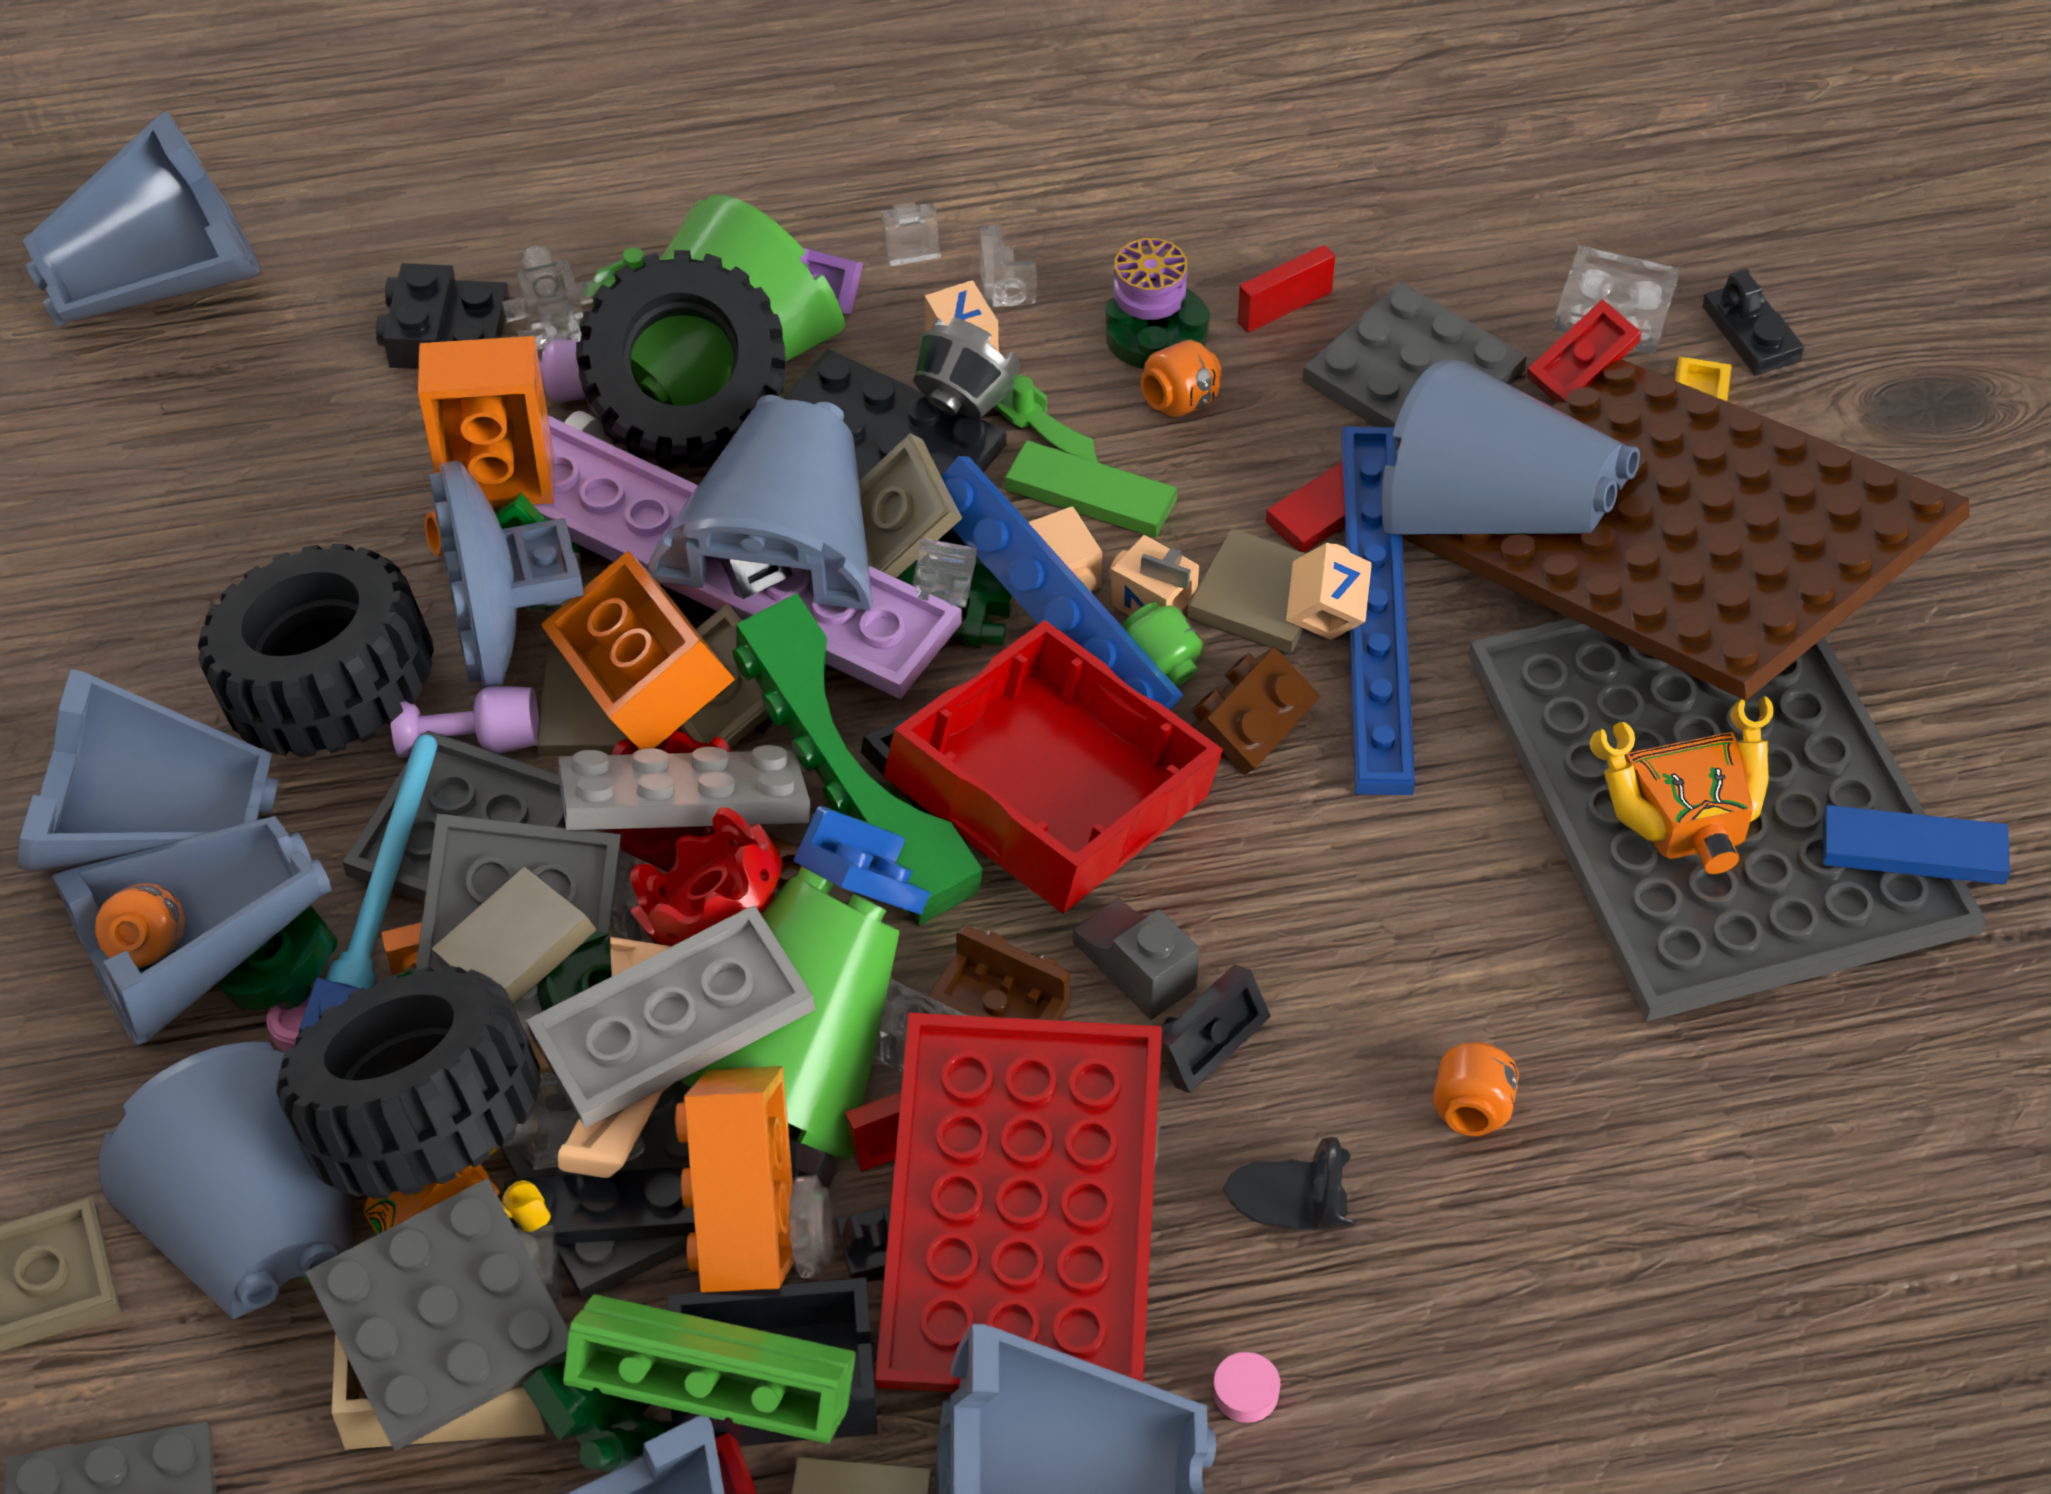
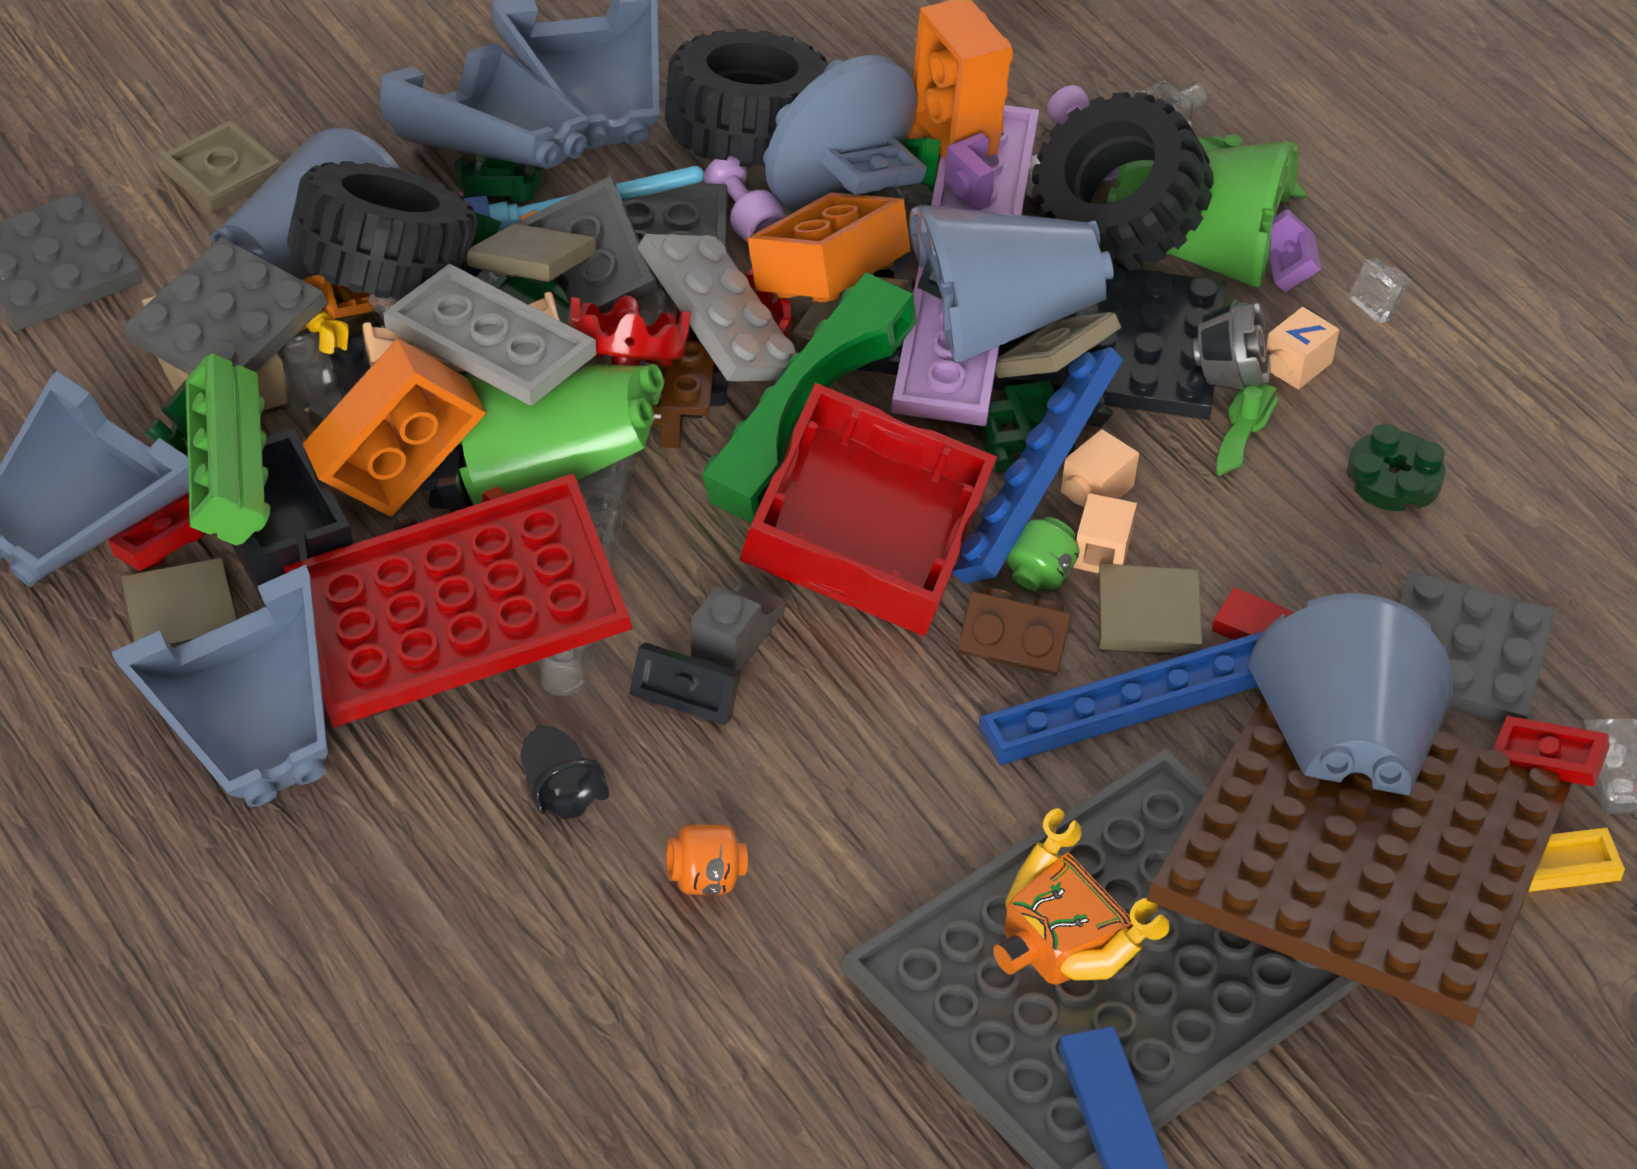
camera: 65 degrees right, 5 degrees down
(141, 921) = (479, 89): orange head -> none
(436, 307) = (1110, 63): black plate -> none
(595, 484) = (968, 172): none -> medium lavender bracket
(810, 1227) = (419, 501): clear gear -> none
(859, 859) = (692, 407): blue bracket -> none
(944, 571) = (1013, 391): clear tile -> none
(1001, 980) = (655, 554): reddish brown bracket -> none
(1002, 278) = (1378, 350): clear bracket -> none
(1091, 488) = (1190, 478): bright green tile -> none
(1150, 283) = (1417, 435): medium lavender wheel -> none
(1166, 569) = (1106, 521): flat silver piece -> none
(1181, 378) = (1335, 492): orange head -> none
(1246, 1387) = (380, 794): bright pink tile -> none
(1286, 288) = (1487, 533): red tile -> none
(1329, 591) = (1156, 635): light nougat brick -> none

